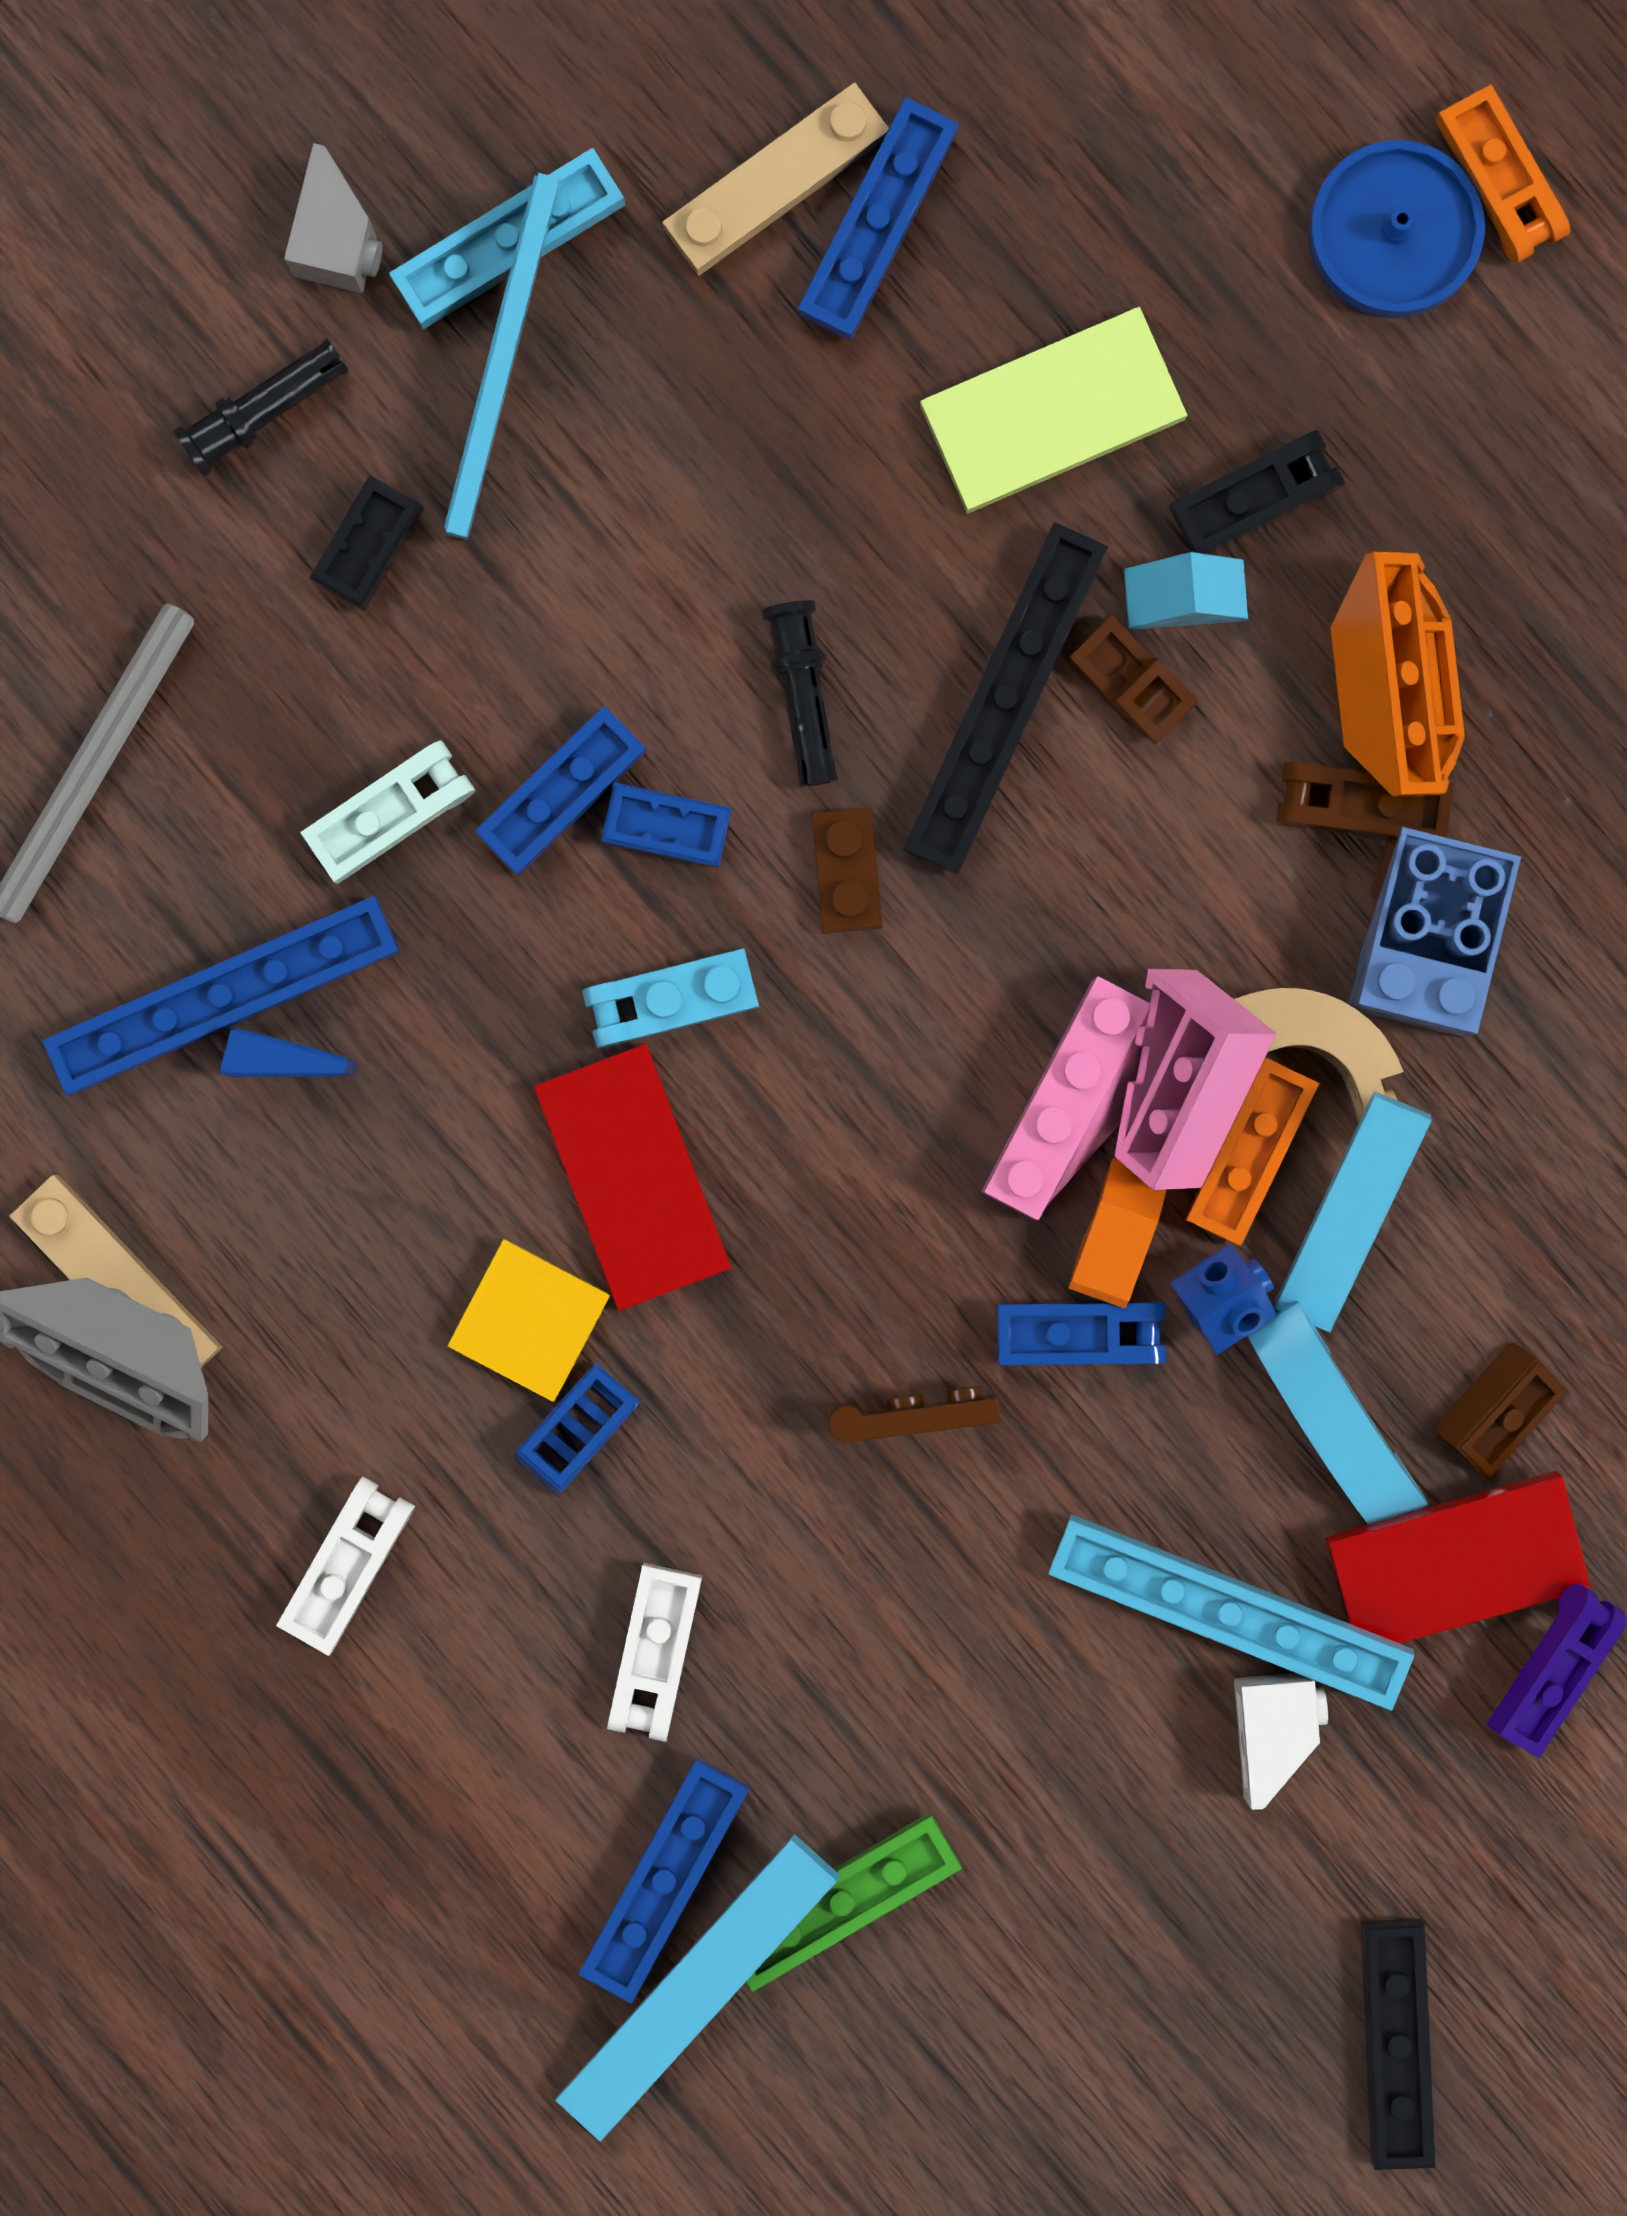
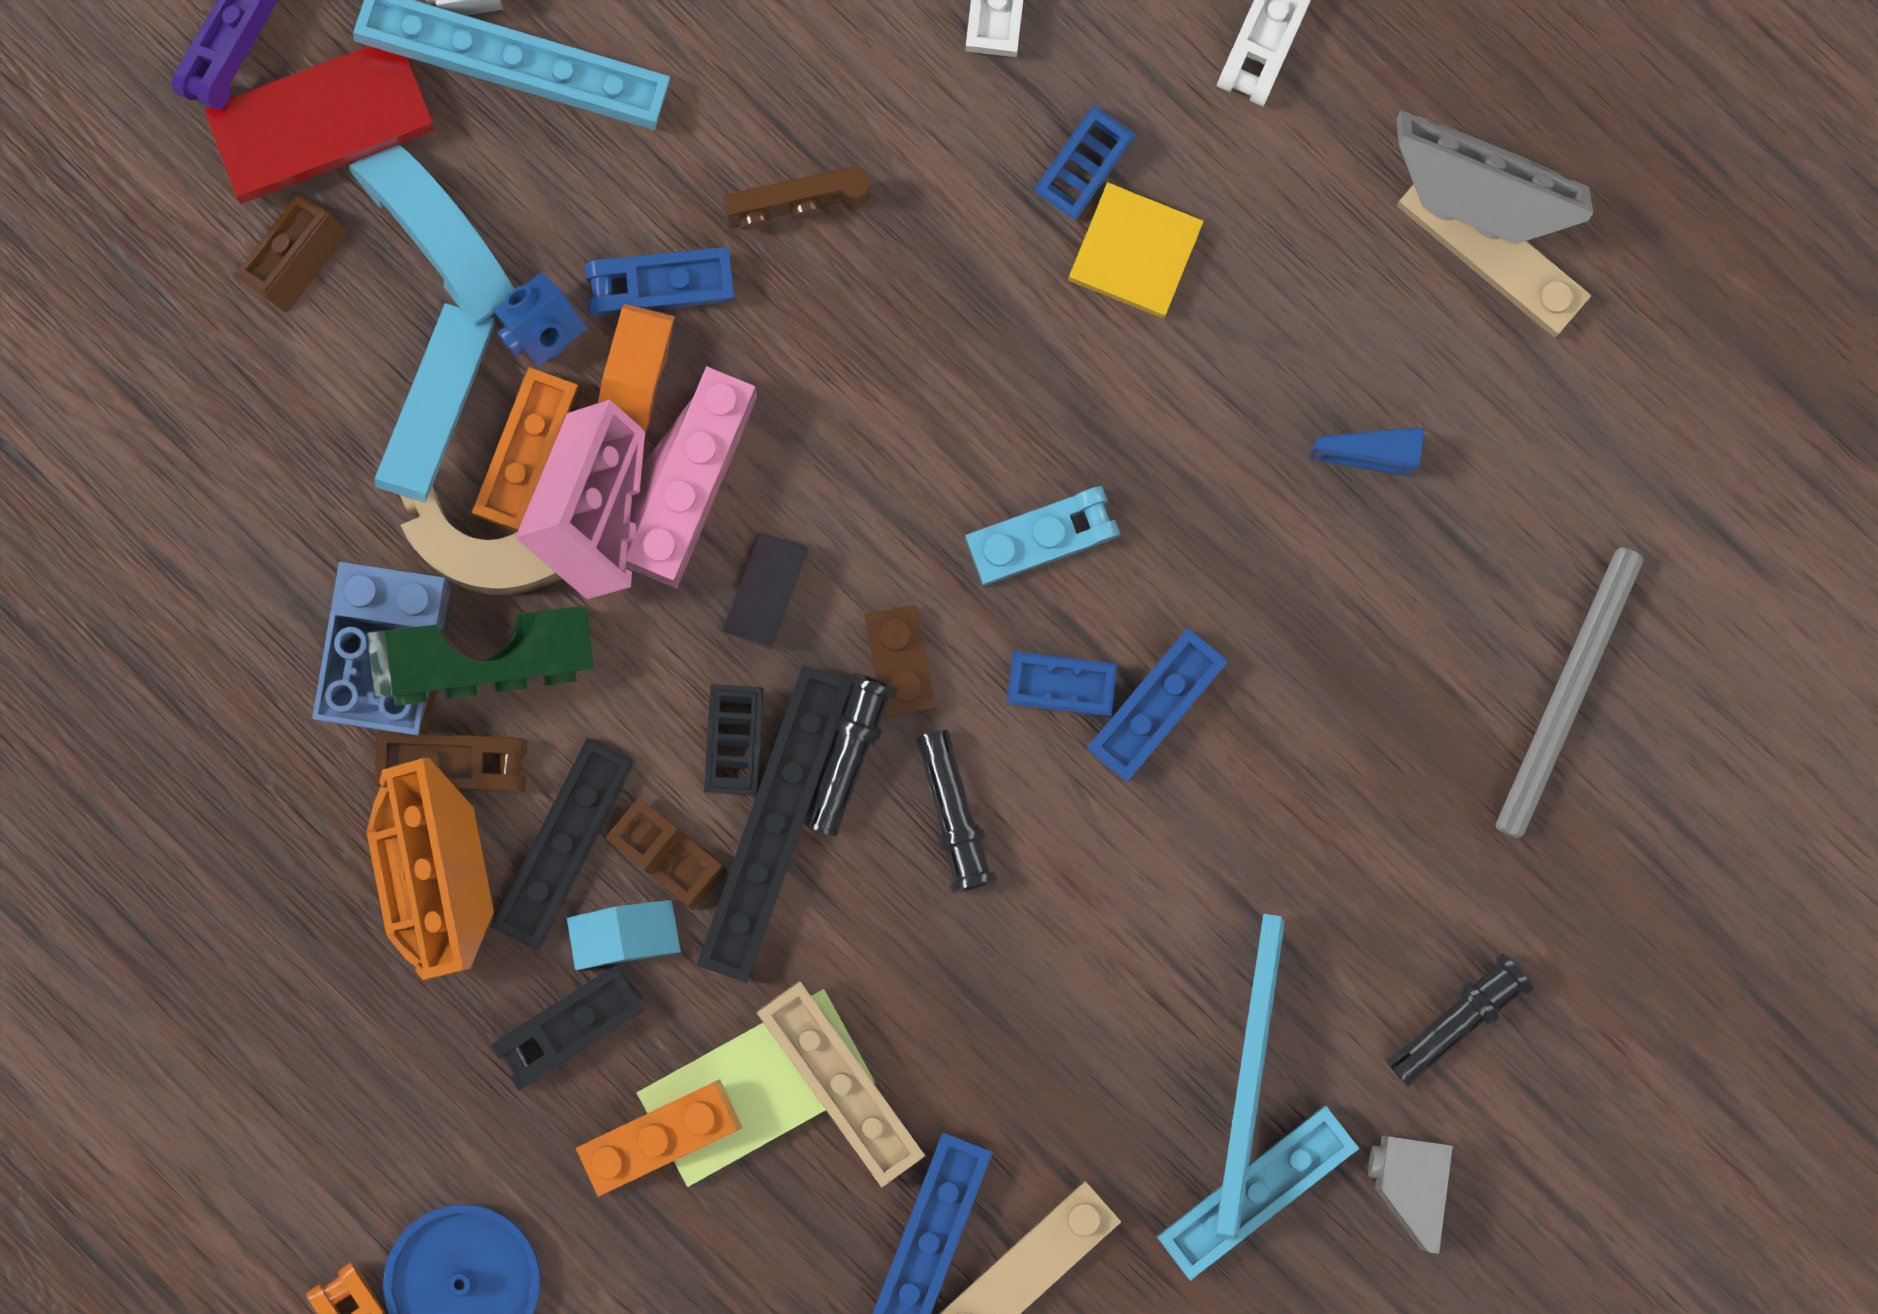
camera: 160 degrees right, 5 degrees down
(221, 996) = (1431, 499): blue plate -> none
(366, 543) = (1351, 907): black plate -> none
(386, 812) = (1308, 671): light aqua plate -> none
(632, 1177) = (1059, 380): red tile -> none
(903, 789) = (857, 730): none -> black pin
(960, 399) = (840, 1083): none -> tan plate
(992, 965) = (765, 590): none -> black slope
(1033, 846) = (741, 695): none -> black slope
(1166, 359) = (659, 1137): none -> orange plate
(1245, 701) = (563, 844): none -> black tile
(1249, 918) = (420, 660): none -> dark green arch

